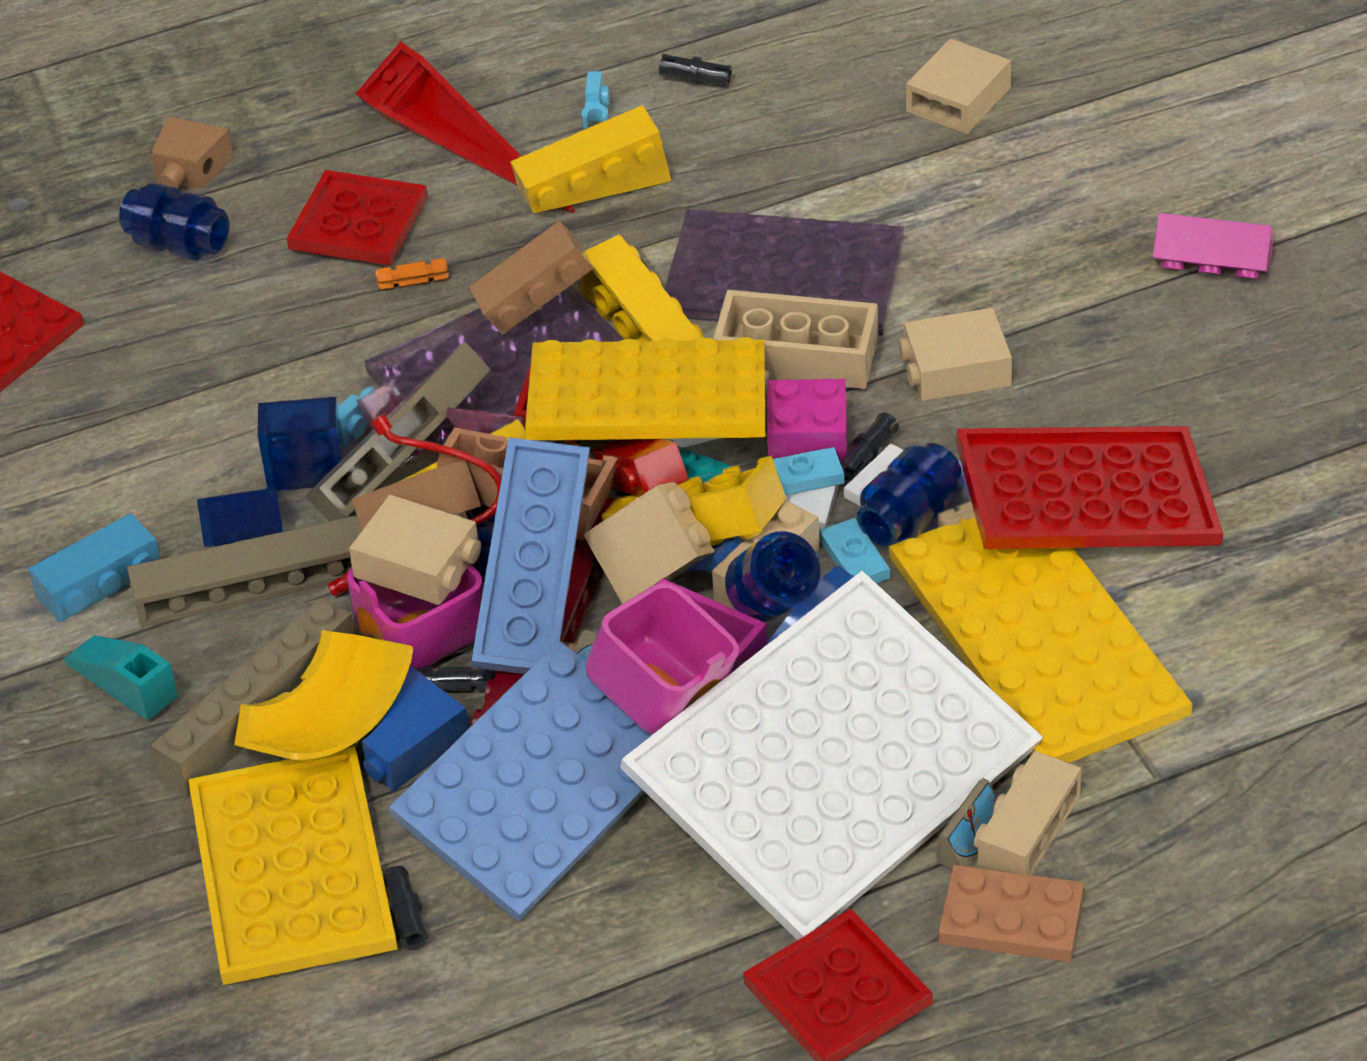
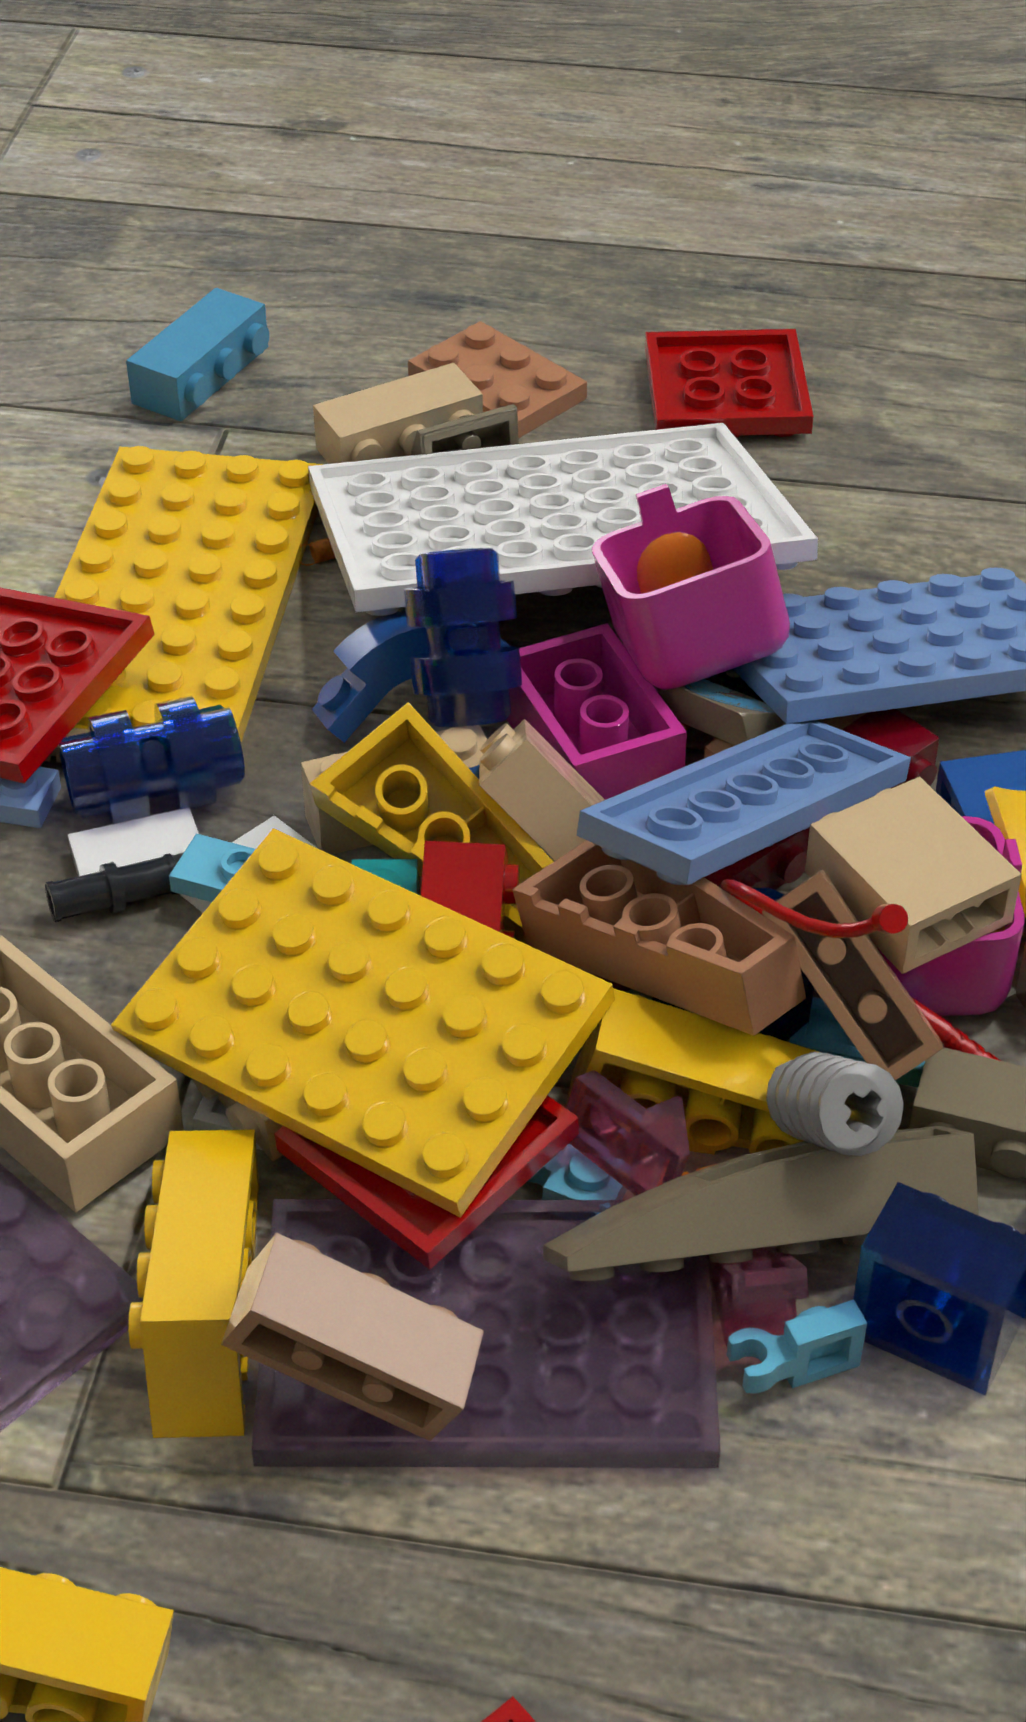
camera: 150 degrees left, 0 degrees up
(394, 456) = (835, 1103): none -> light grey piece
(412, 274) = (491, 1654): orange axle -> none
(806, 416) = (131, 930): dark pink brick -> none
(854, 550) = (274, 773): medium azure plate -> none
(1228, 802) = (197, 354): none -> dark azure brick

